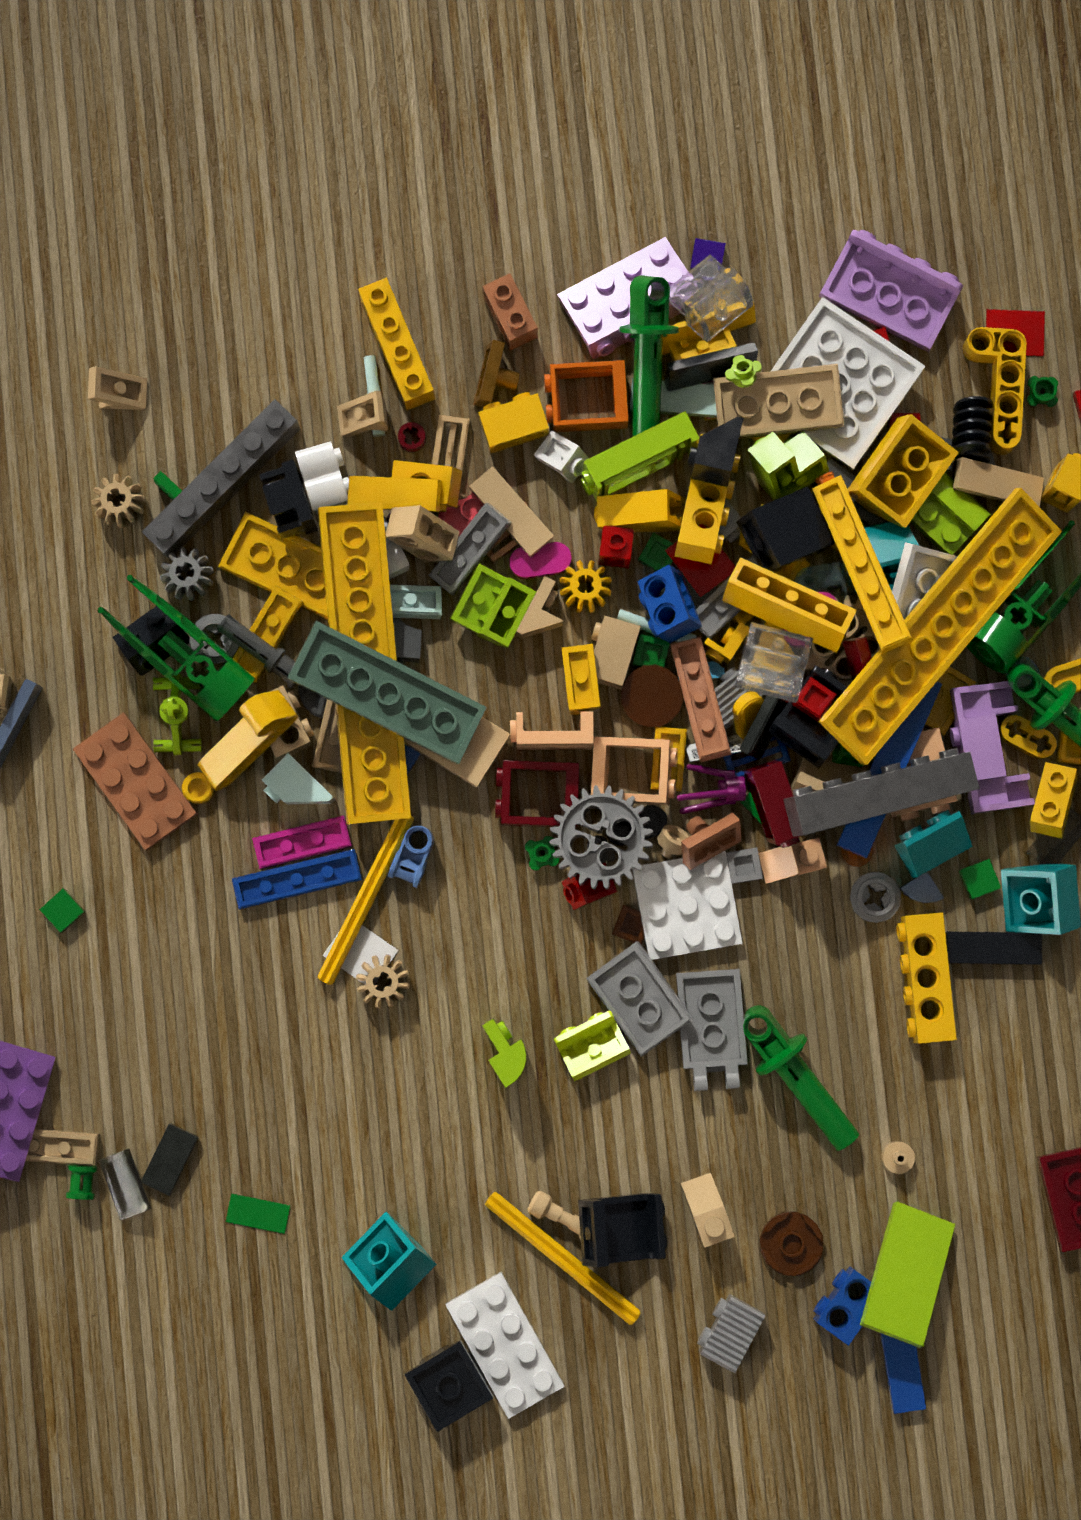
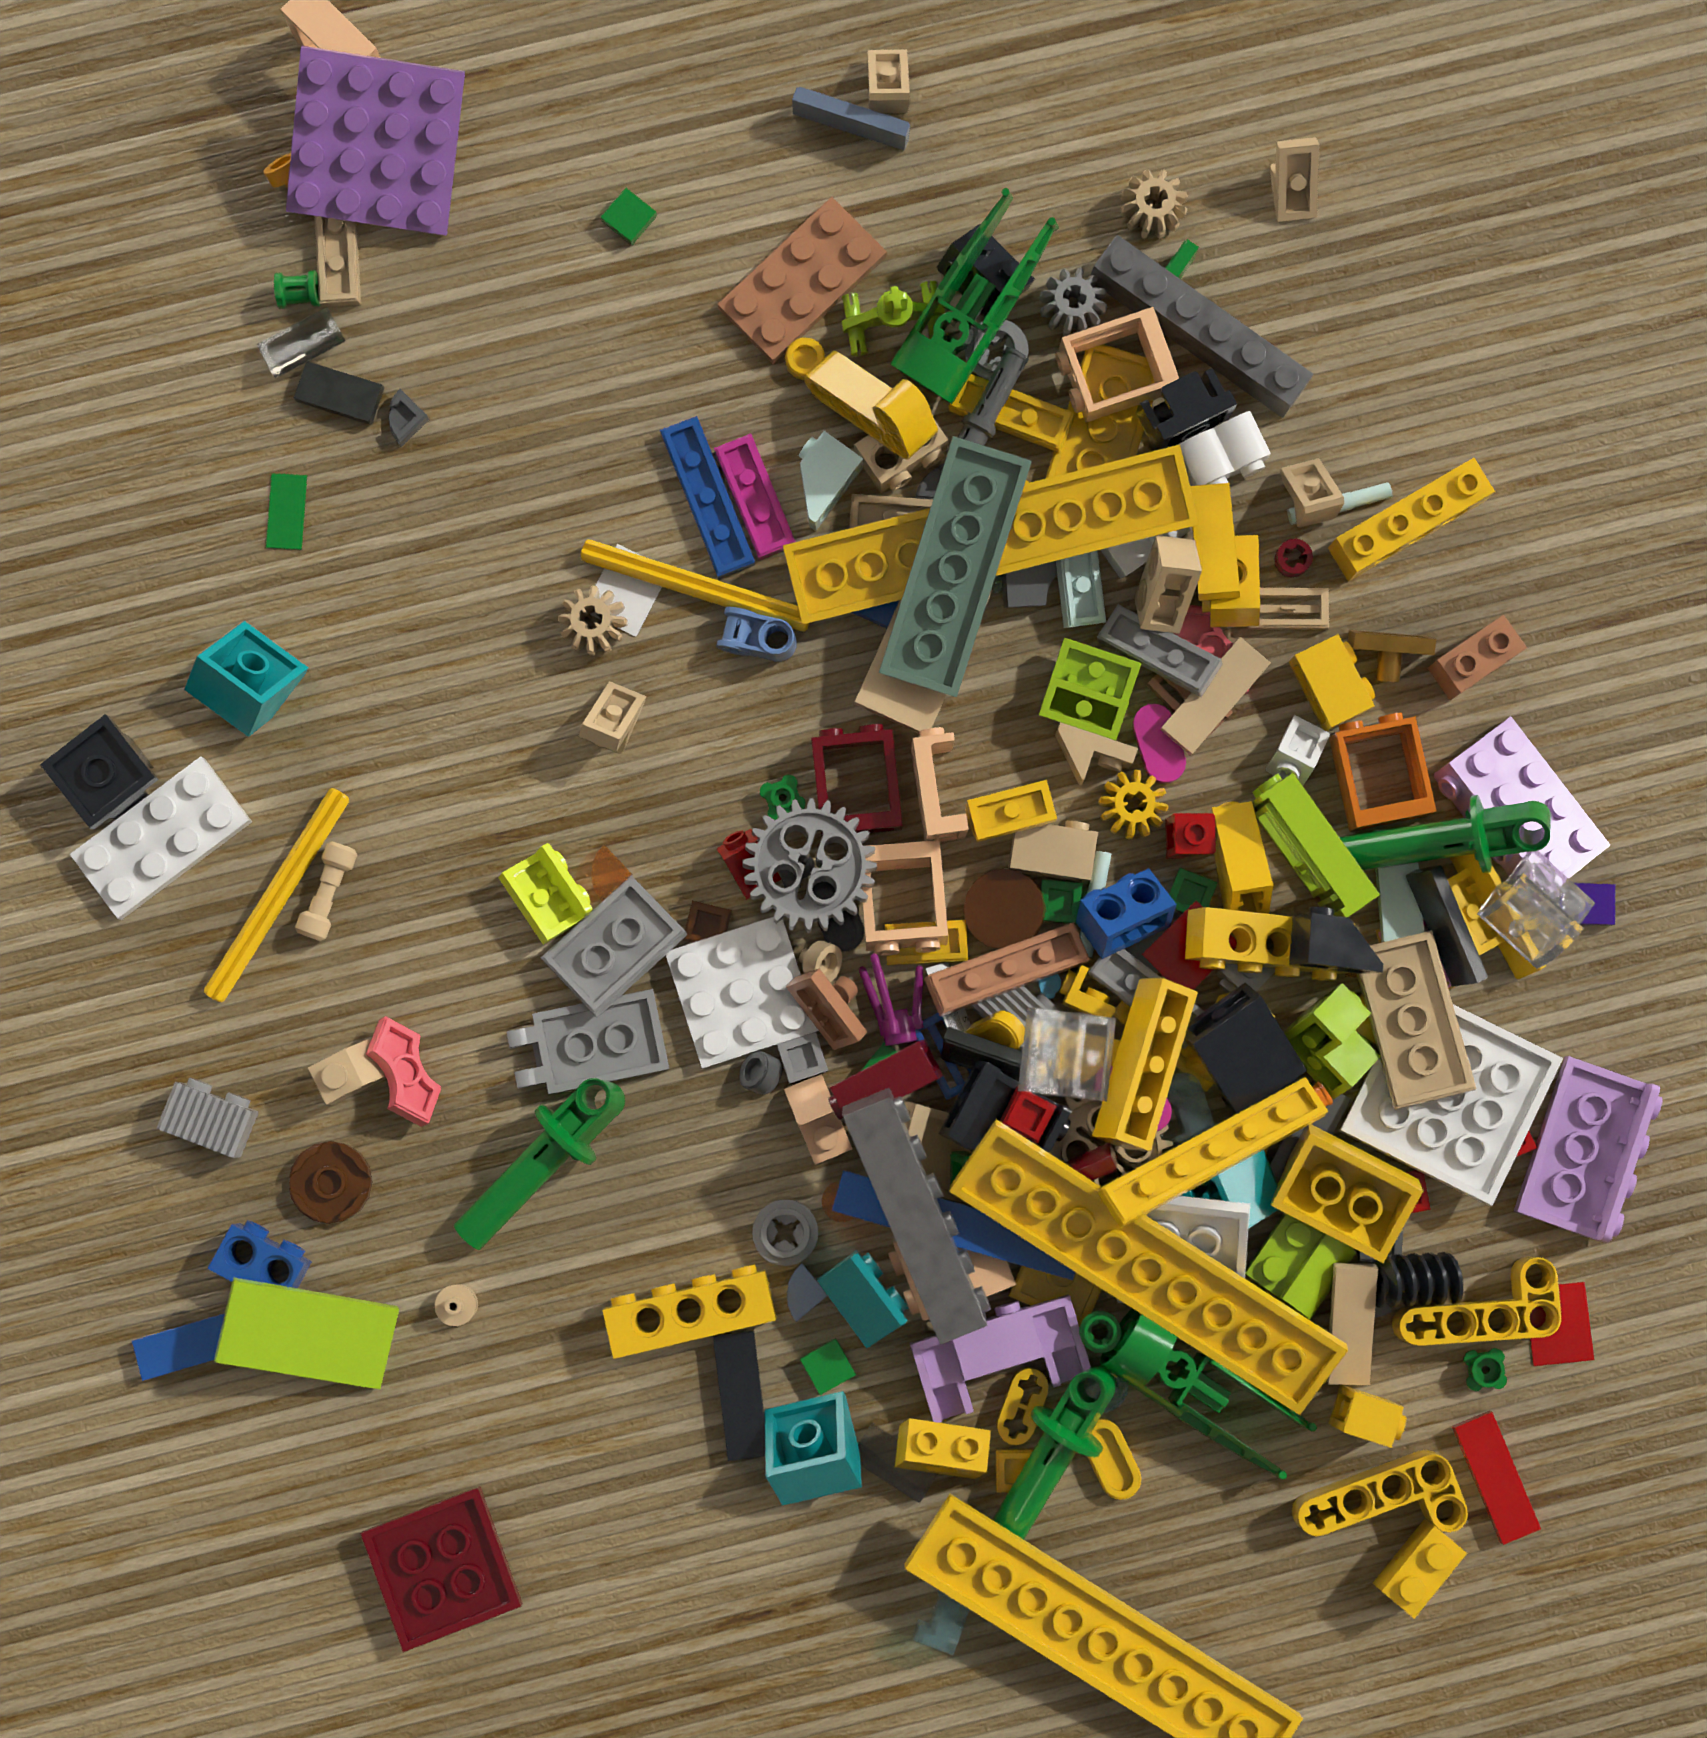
camera: 80 degrees right, 0 degrees up
(197, 1109) = (405, 418): none -> dark grey tile
(236, 516) = (1155, 348): none -> light nougat window
(461, 975) = (613, 717): none -> tan slope
(511, 1058) = (515, 790): lime brick -> none
(581, 996) = (607, 873): none -> clear orange tile
(622, 1229) = (320, 961): black panel -> none
(701, 1177) = (410, 1088): none -> coral tile
(743, 378) = (1436, 968): lime plate -> none
(751, 899) = (760, 1072): none -> dark grey tile
(989, 666) = (1113, 1332): none -> green cone

